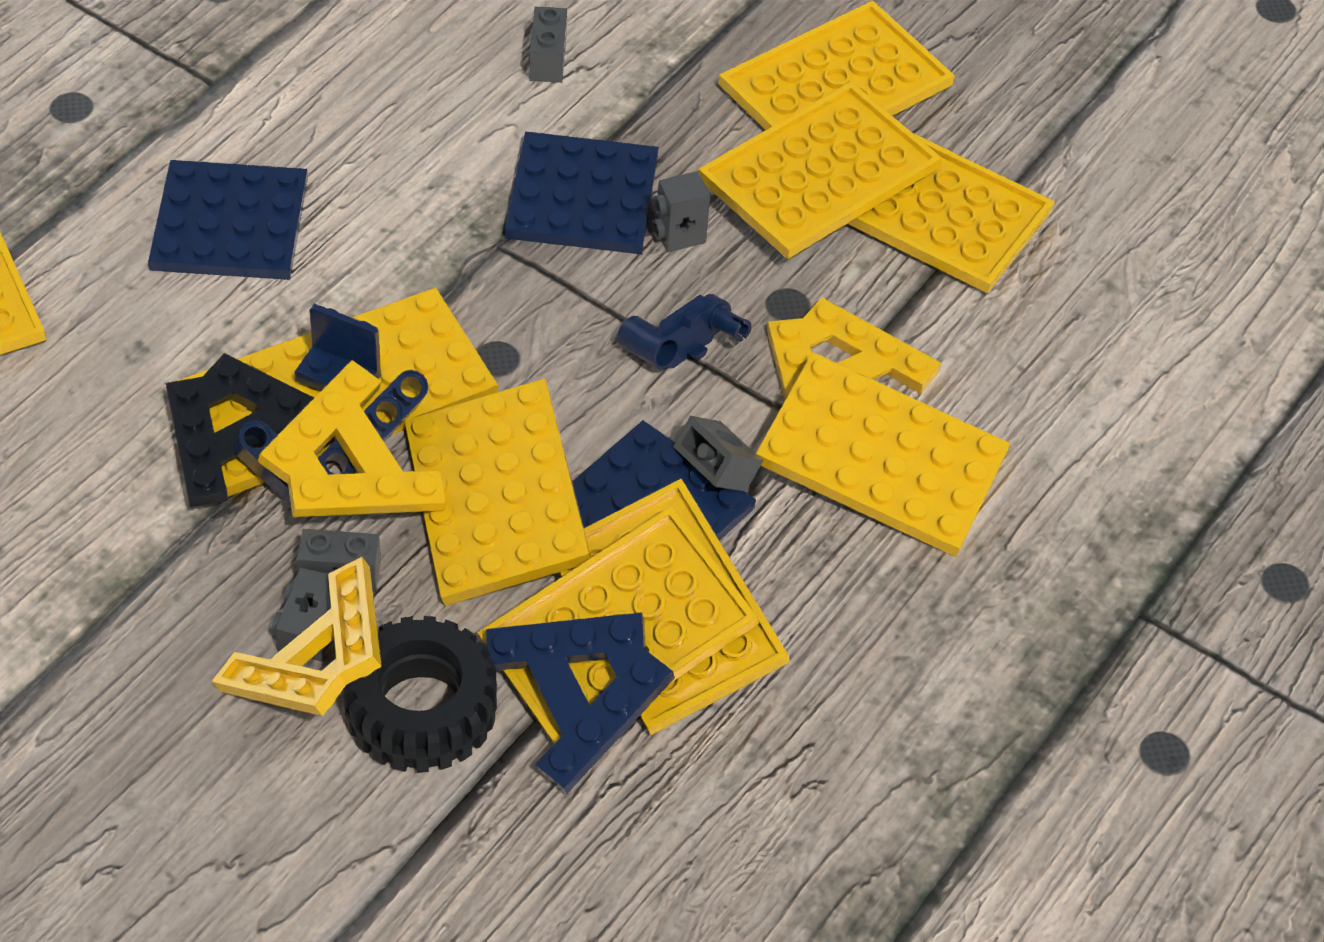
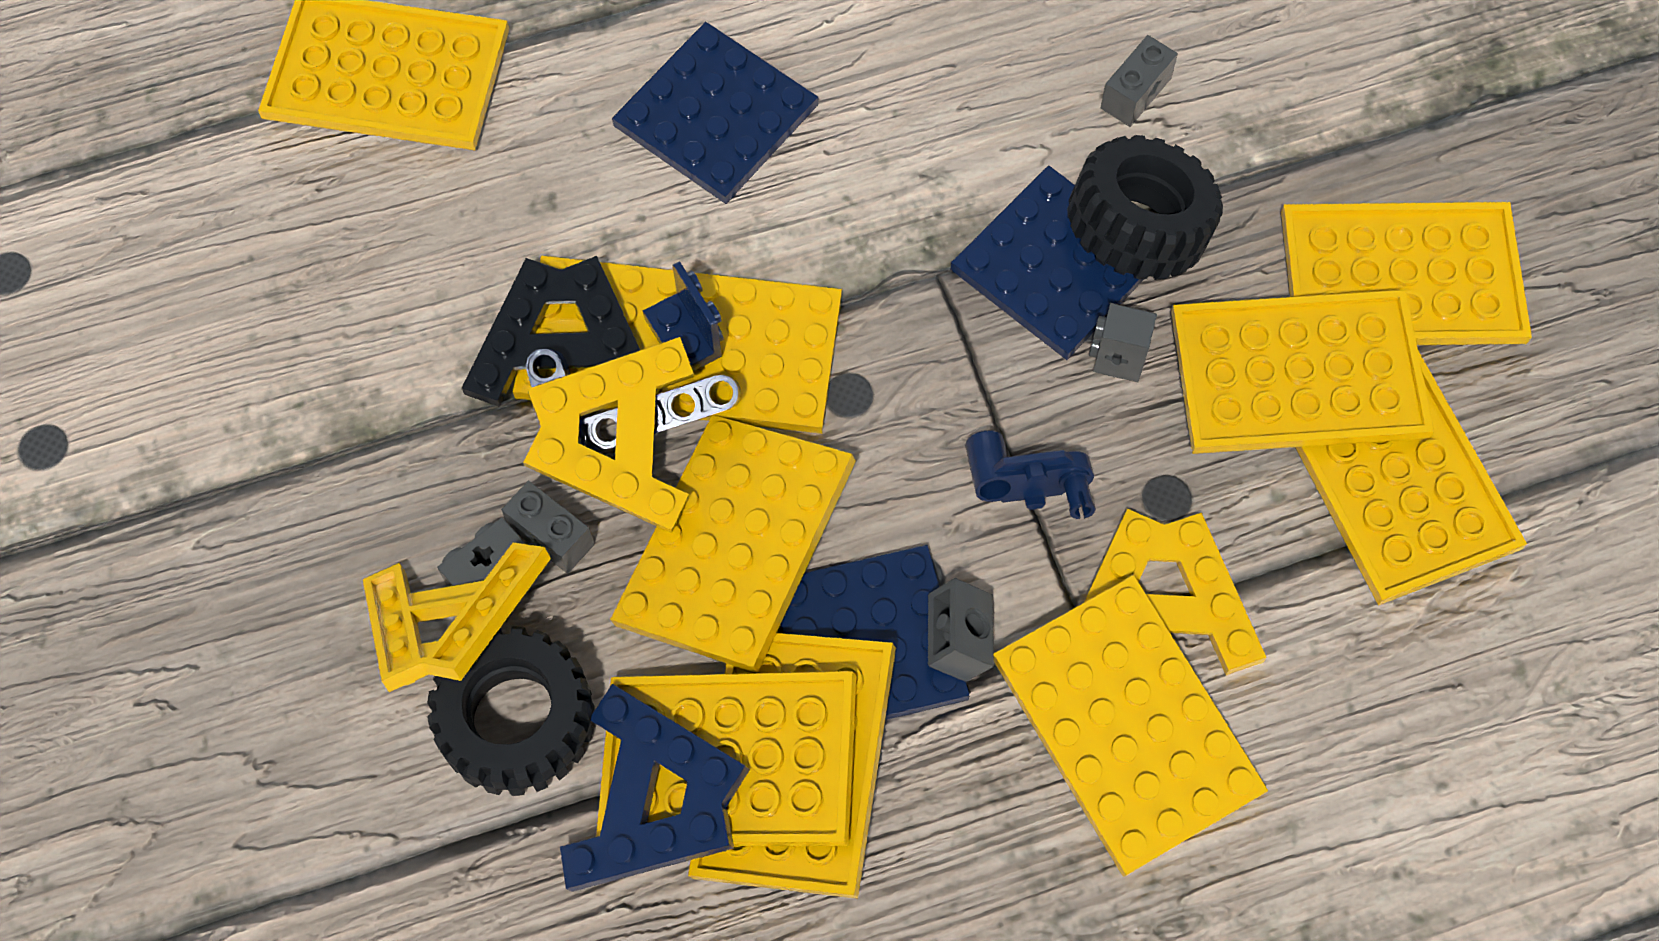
camera: 40 degrees right, 15 degrees up
(627, 115) = (1131, 236): none -> black tyre

